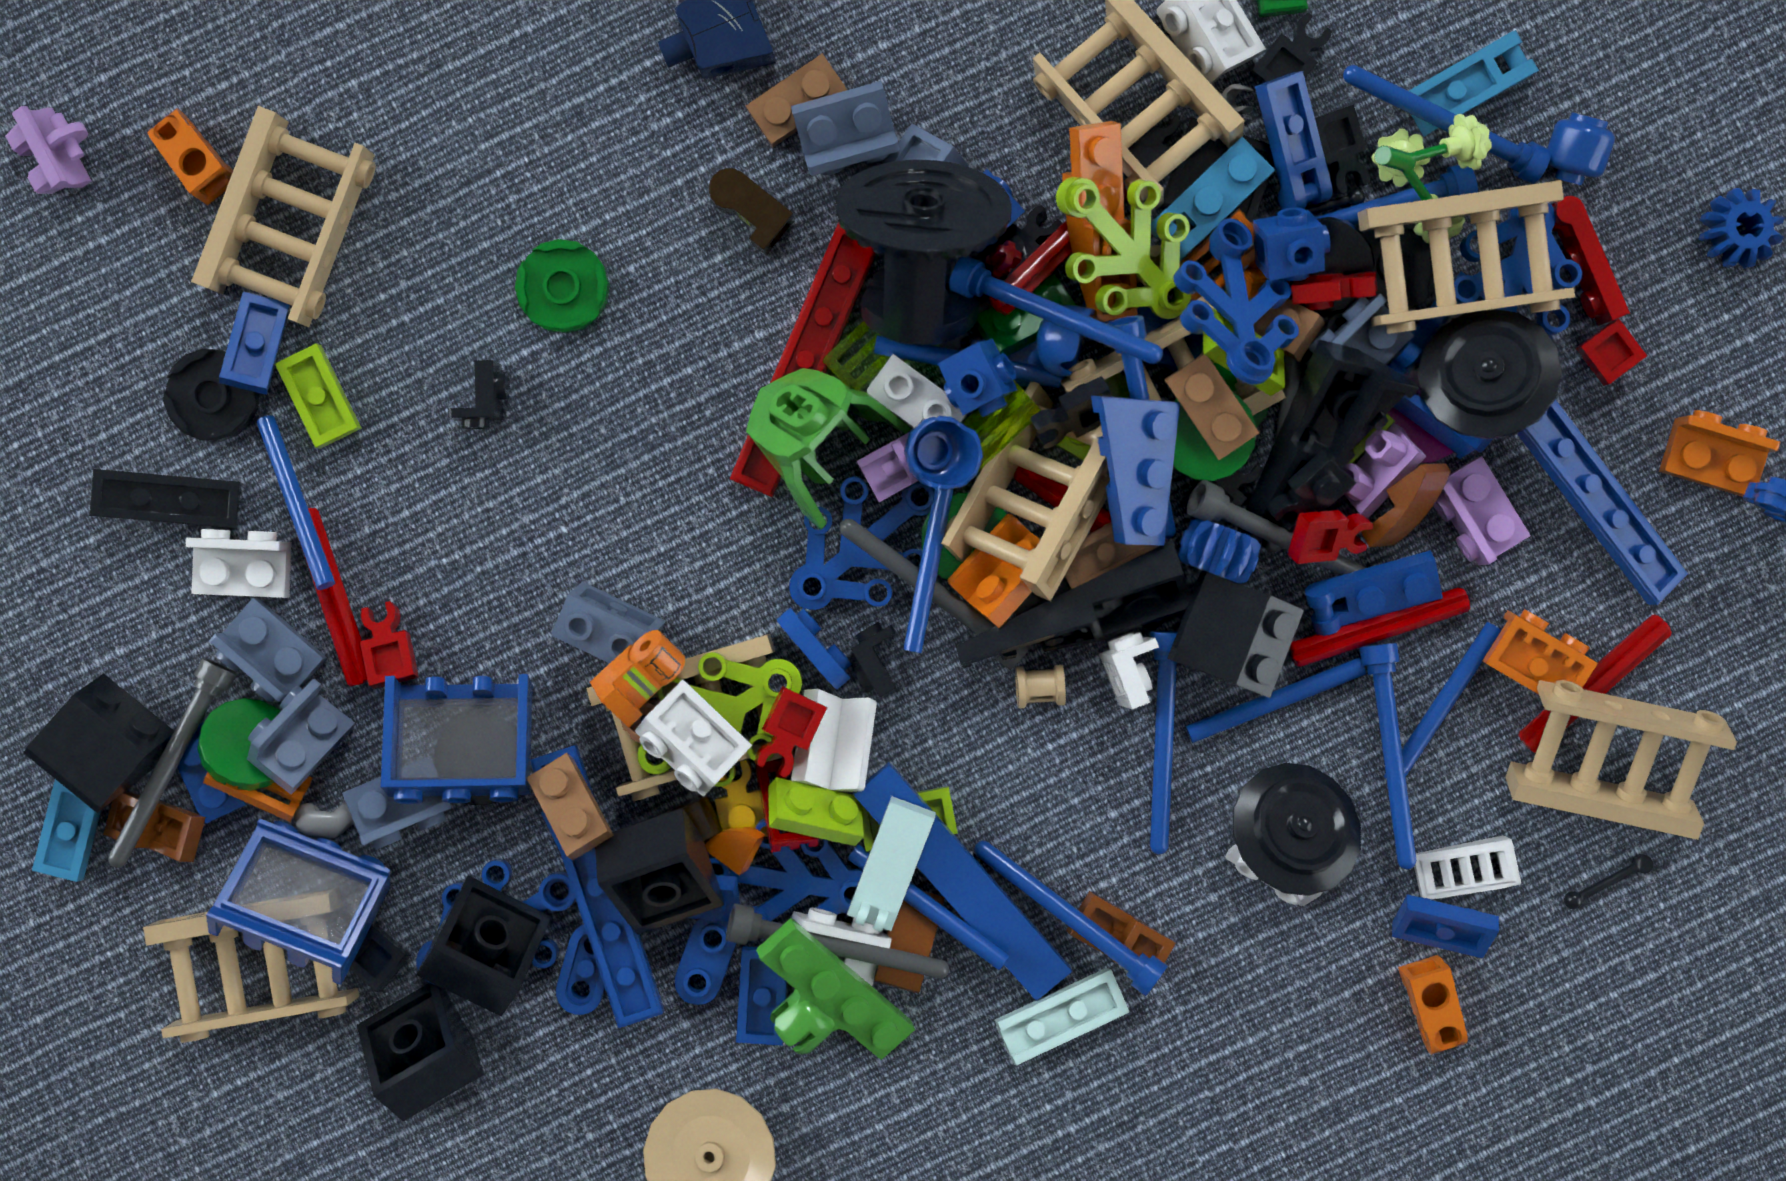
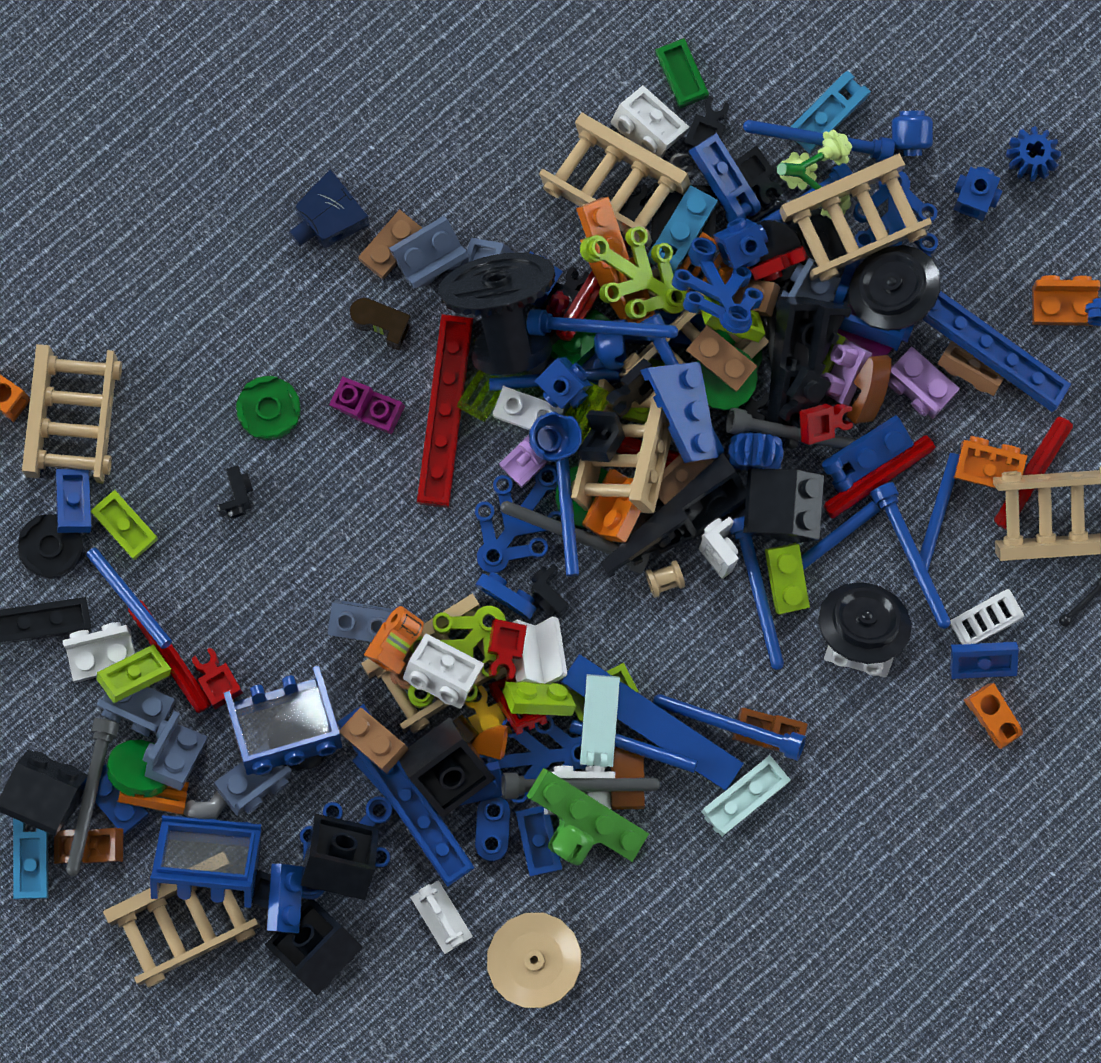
camera: 15 degrees left, 10 degrees down
(271, 611) = (133, 673): none -> lime plate
(392, 982) = (285, 898): none -> blue plate
(579, 966) = (410, 857): blue plate -> none
(603, 1059) = (441, 916): none -> white hinge
(699, 322) = (367, 405): none -> magenta slope
(797, 415) = (449, 444): bright green piece -> none
(1010, 472) = (604, 437): none -> black bracket
(1208, 735) = (787, 578): none -> lime plate
(1549, 507) = (963, 364): none -> medium nougat plate
(1600, 293) = (954, 218): red plate -> none
(1611, 352) = (973, 255): red tile -> none
(1646, 262) = (977, 192): none -> blue brick

